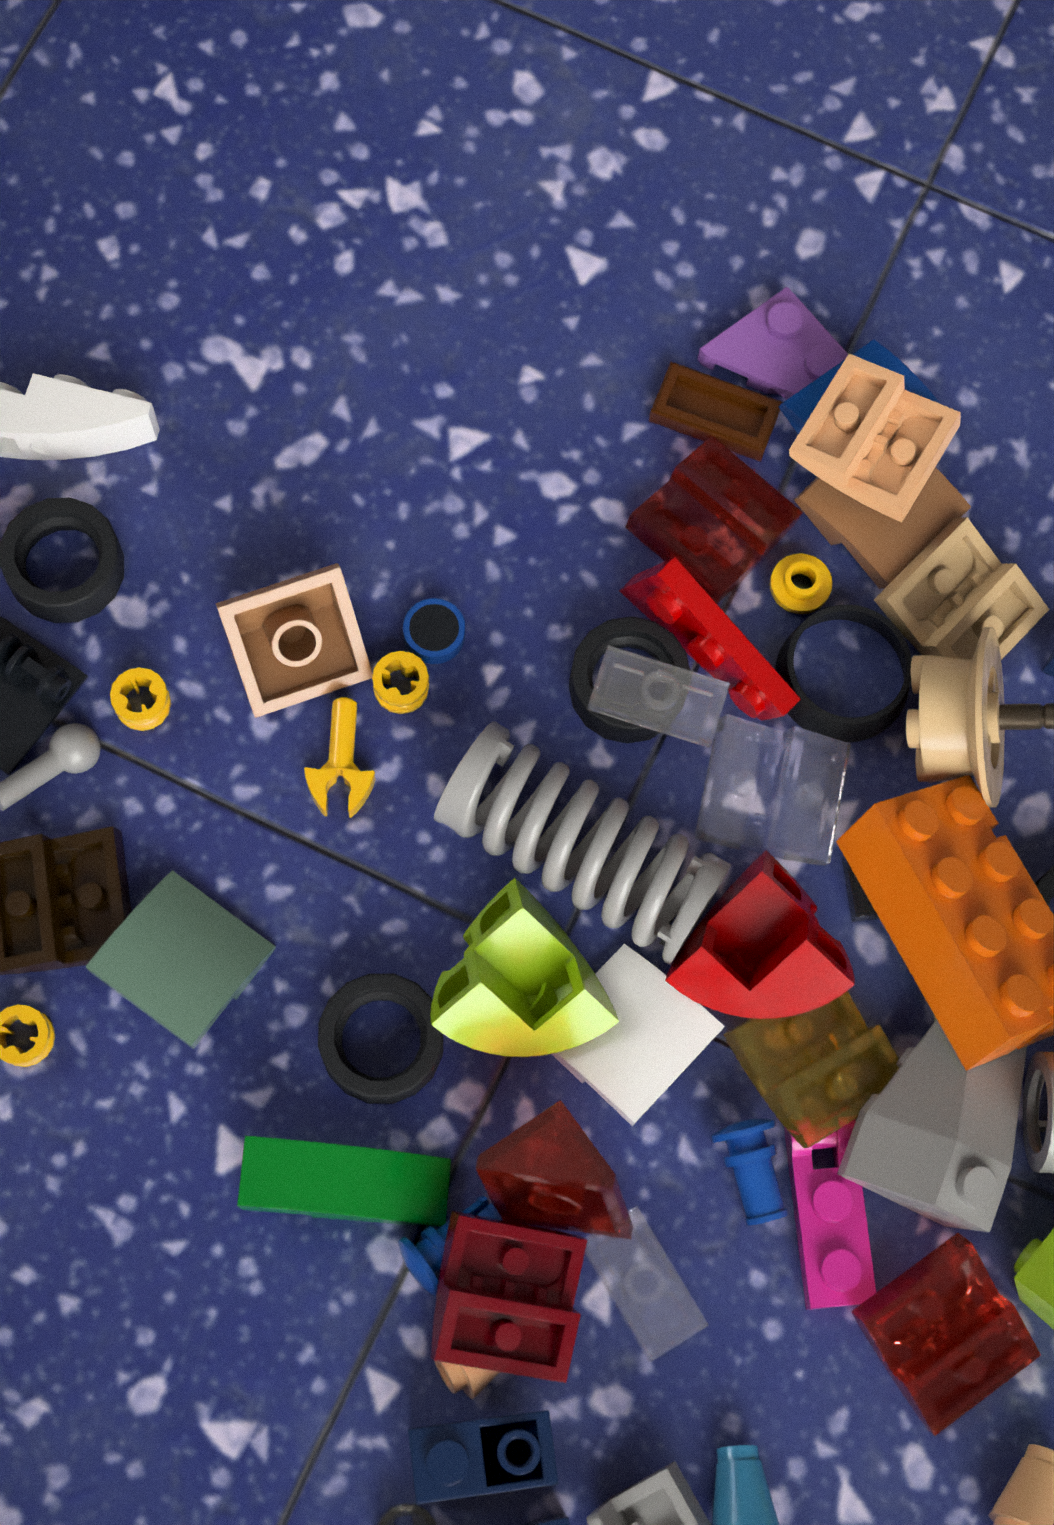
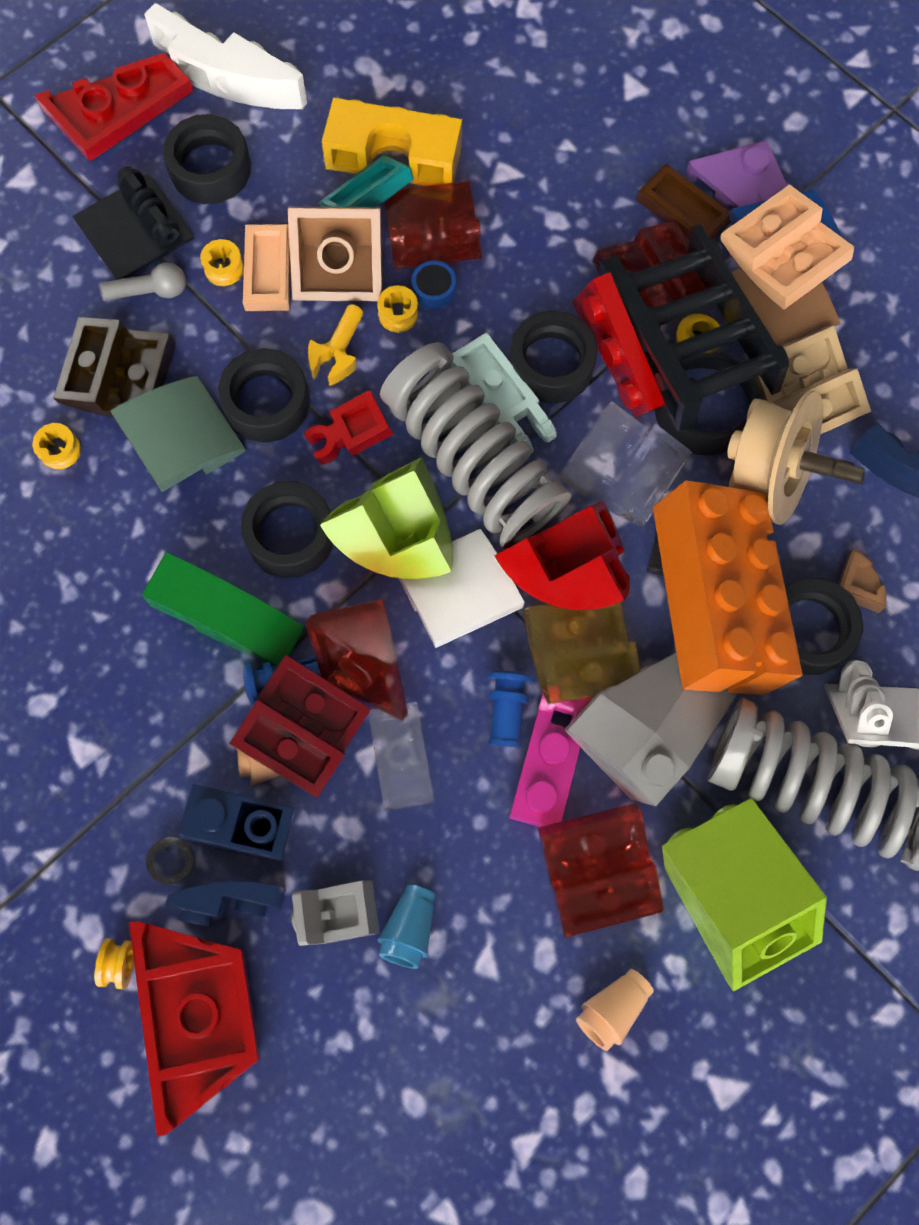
camera: 25 degrees right, 0 degrees up
(203, 684) = (266, 268): none -> light nougat tile
(256, 450) = (363, 130): none -> yellow arch
(264, 818) = (256, 364): none -> black tyre
(295, 531) = (371, 185): none -> teal tile
(400, 549) = (433, 225): none -> clear red hinge
(412, 865) = (356, 425): none -> red plate
(584, 745) = (503, 387): none -> light aqua hinge
(658, 696) = (565, 367): clear plate -> none
(818, 683) = (679, 392): none -> black fence

